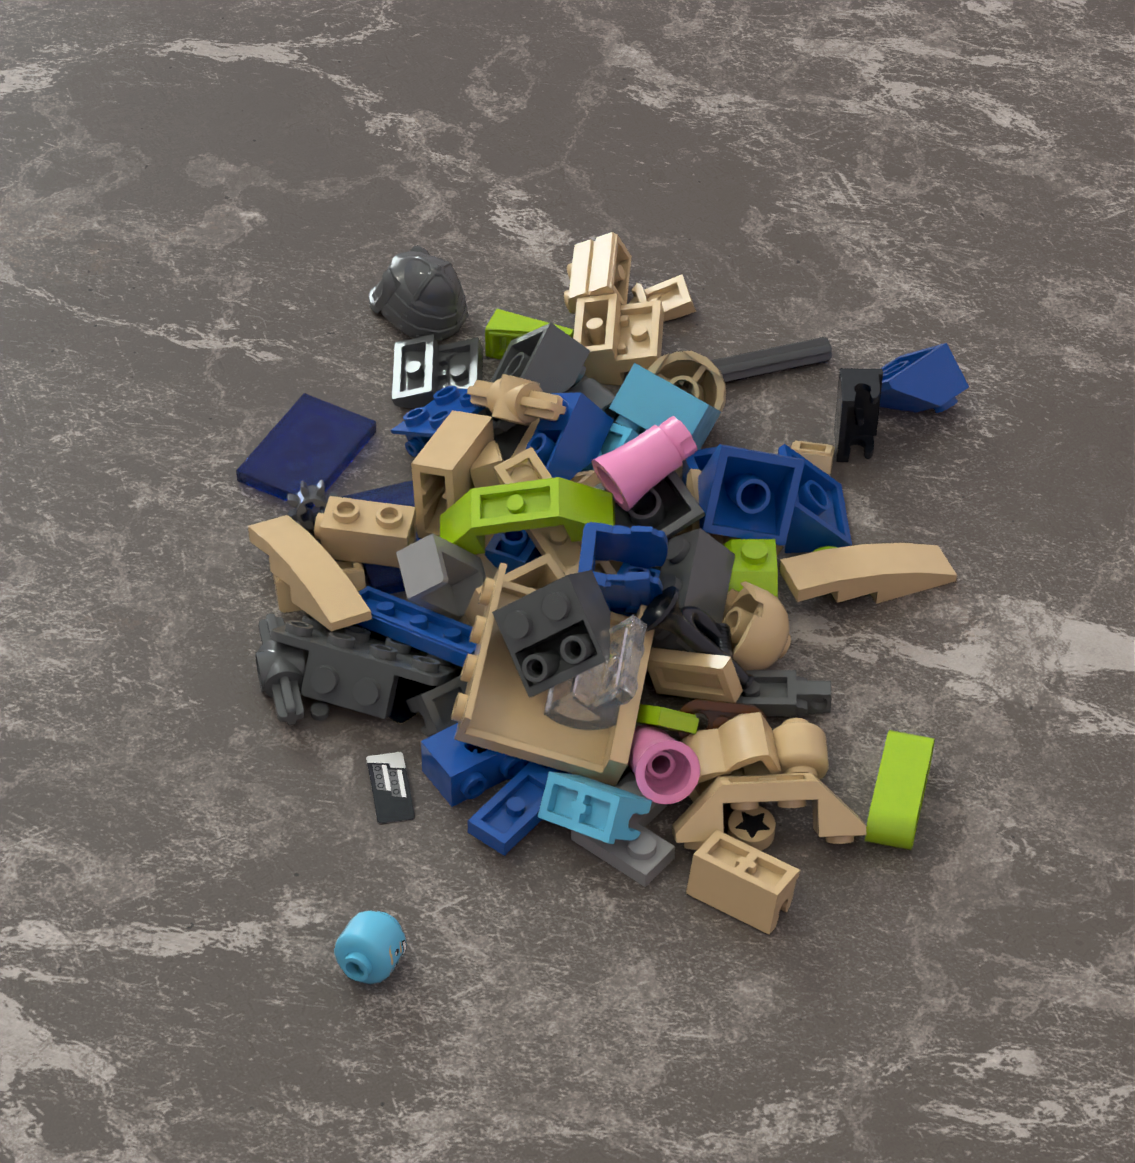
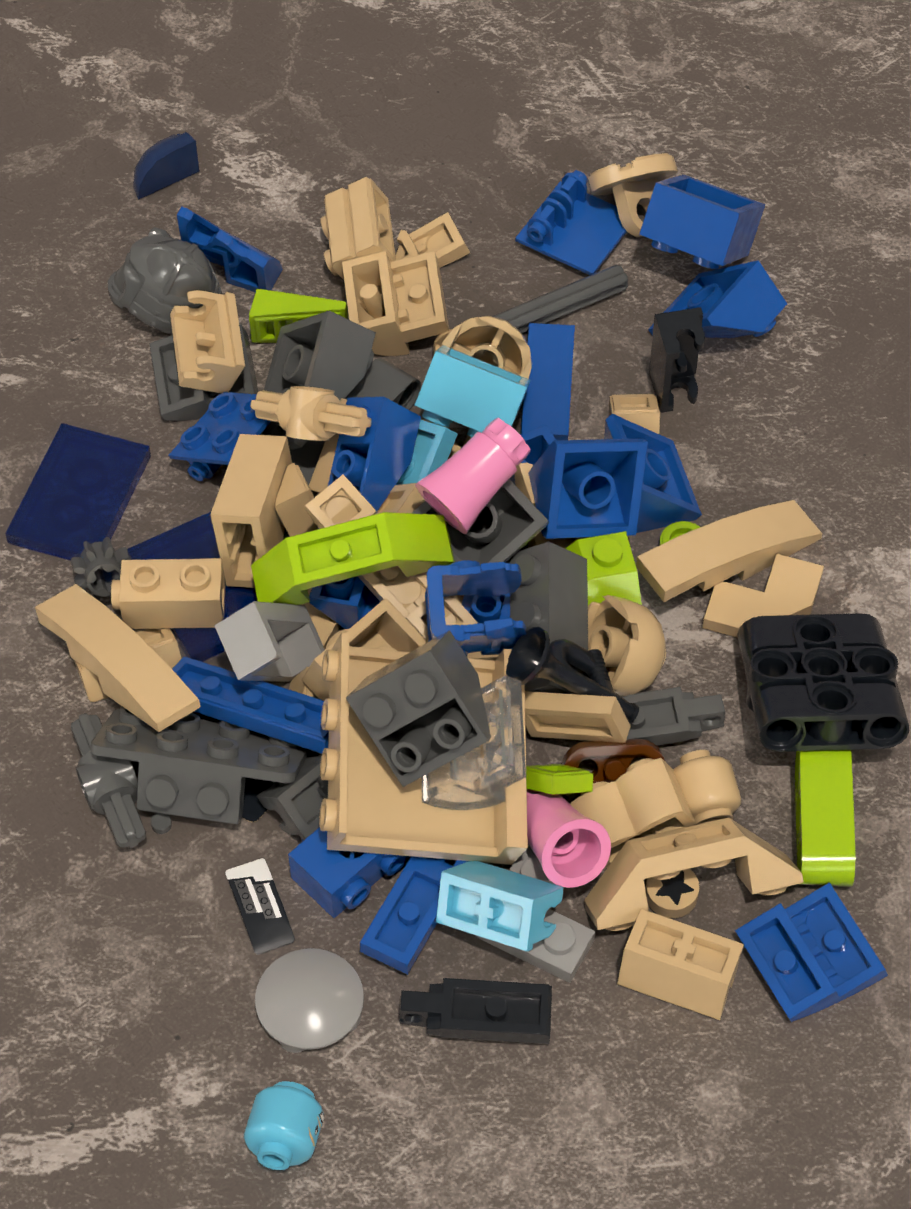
camera: 10 degrees left, 10 degrees up
(415, 861) = (309, 999): none -> light grey dish
(442, 204) = (165, 164): none -> dark blue brick
(444, 344) = (208, 342): none -> tan hinge
(489, 287) = (243, 263): none -> blue slope
(560, 890) = (481, 1010): none -> black hinge
(743, 412) = (551, 379): none -> blue tile
(795, 301) = (574, 226): none -> blue hinge
(855, 272) = (632, 185): none -> tan tile
(862, 894) = (811, 953): none -> blue slope
(873, 627) = (788, 592): none -> tan tile
(905, 307) = (701, 221): none -> blue piece
(921, 683) = (822, 682): none -> black connector

